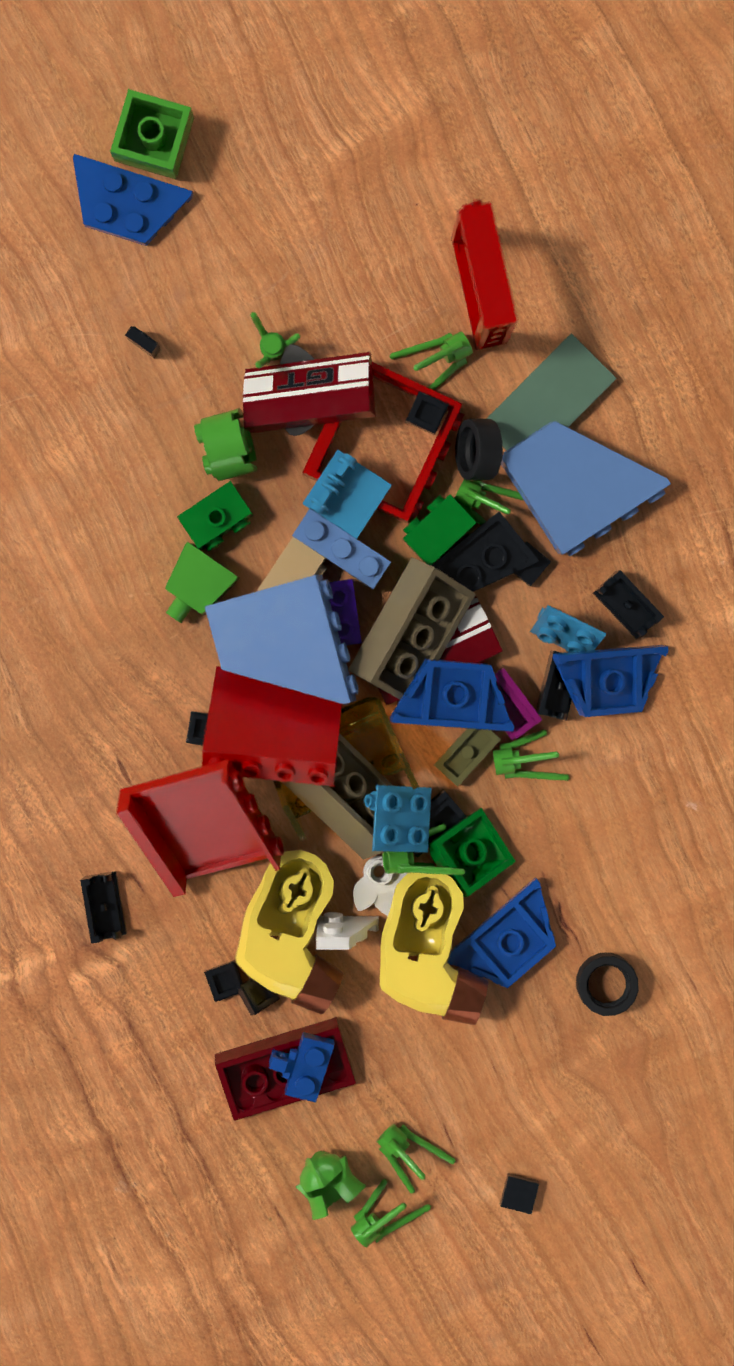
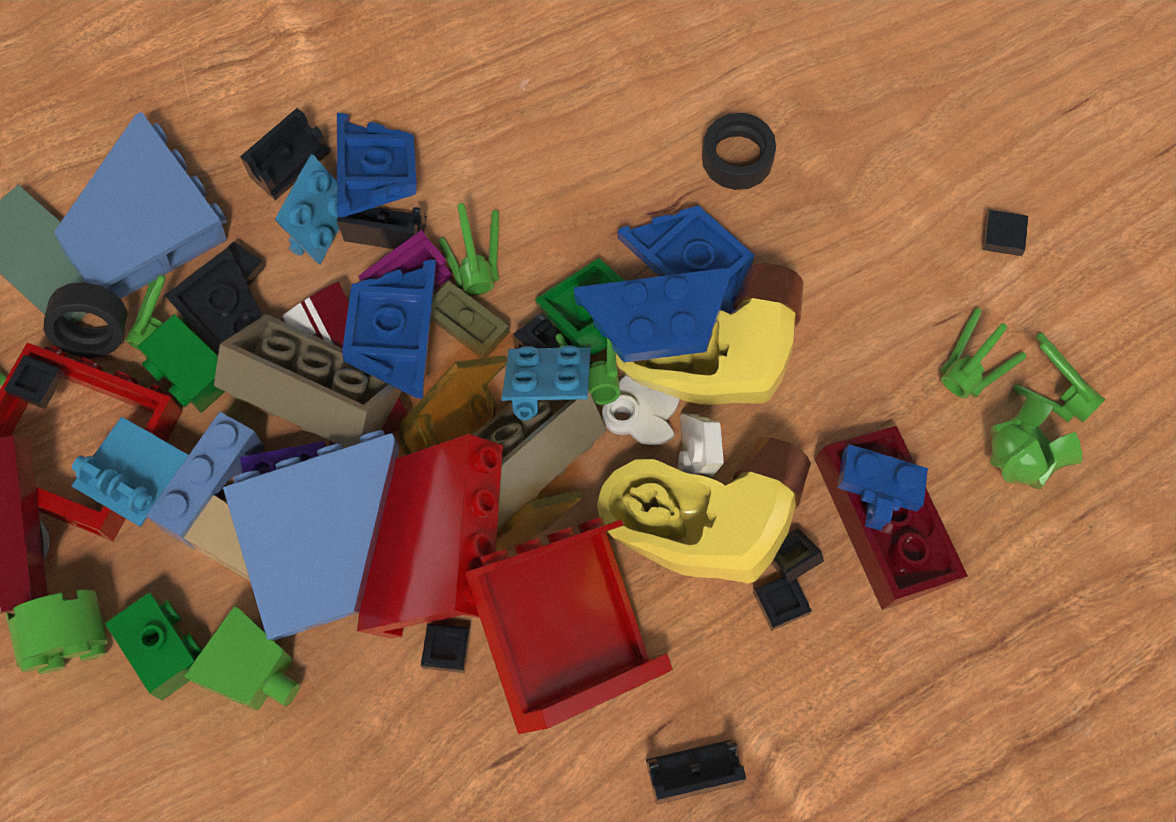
camera: 90 degrees left, 20 degrees down
(445, 908) = (657, 313): none -> blue wing

